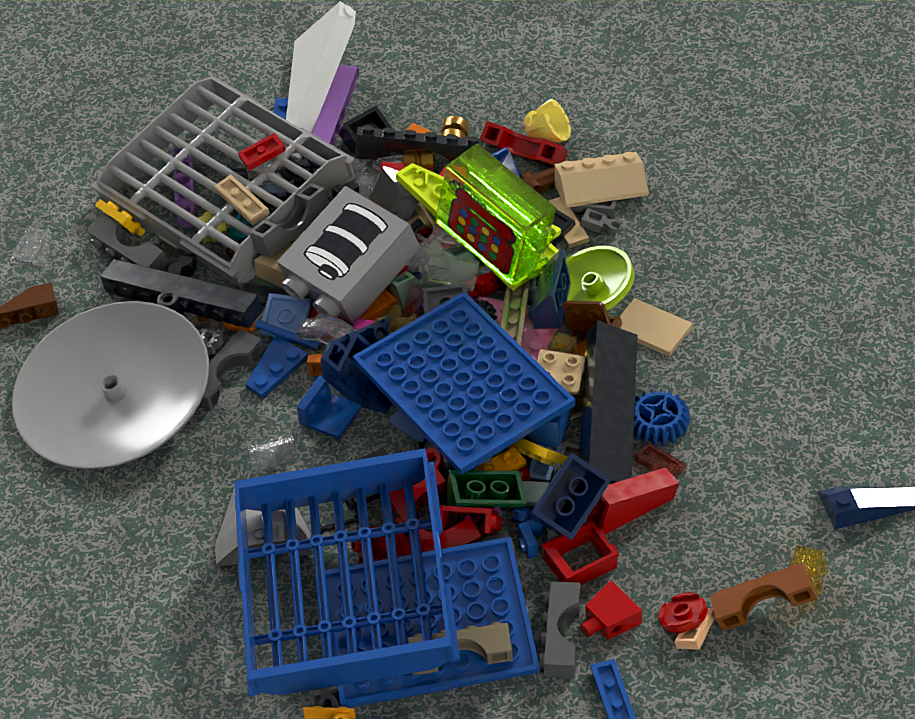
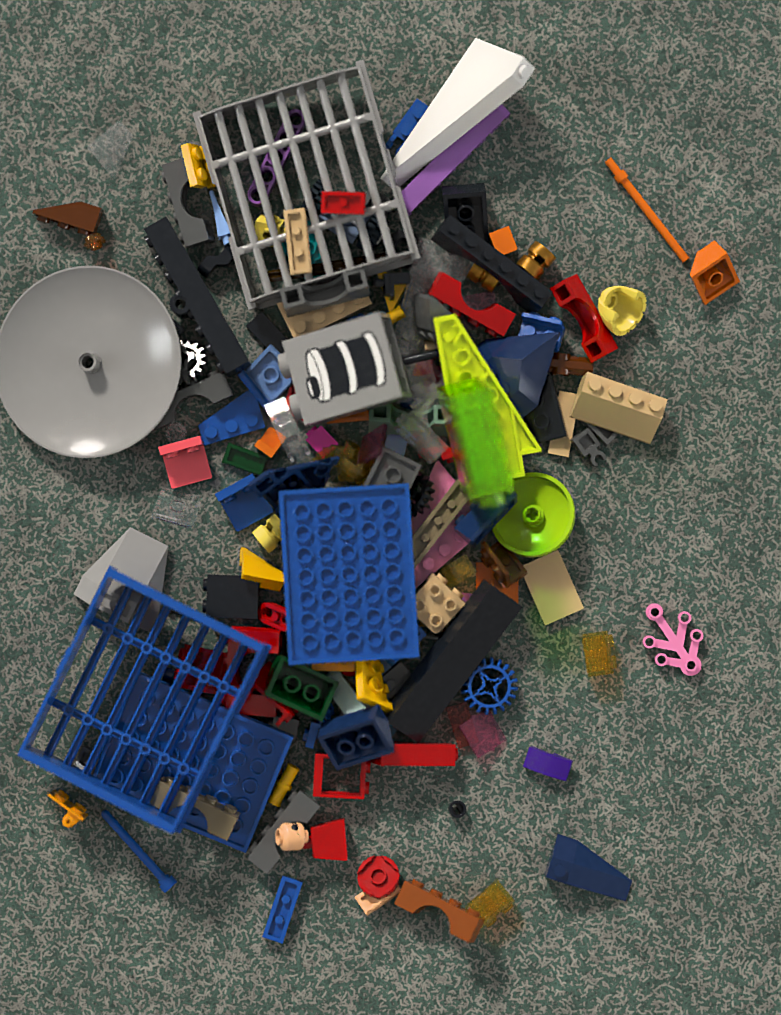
camera: 30 degrees right, 40 degrees up
(60, 312) = (94, 241): none -> clear orange plate
(170, 248) = (221, 223): none -> light blue piece
(249, 410) = (186, 462): none -> coral bracket
(297, 388) = (245, 459): none -> dark green tile
(371, 416) = (269, 534): none -> light yellow wheel
(391, 445) = (260, 571): none -> yellow slope
(479, 62) = (621, 177): none -> orange bar
(532, 595) = (283, 785): none -> yellow pin
(572, 617) = (291, 836): none -> light nougat head
(604, 71) = (712, 272): none -> orange slope
(683, 454) = (482, 733): none -> clear pink piece
(710, 521) = (460, 807): none -> black hinge
(732, 344) = (598, 653): none -> clear yellow brick
(759, 441) = (547, 763): none -> dark purple slope
(789, 304) = (675, 642): none -> bright pink plant

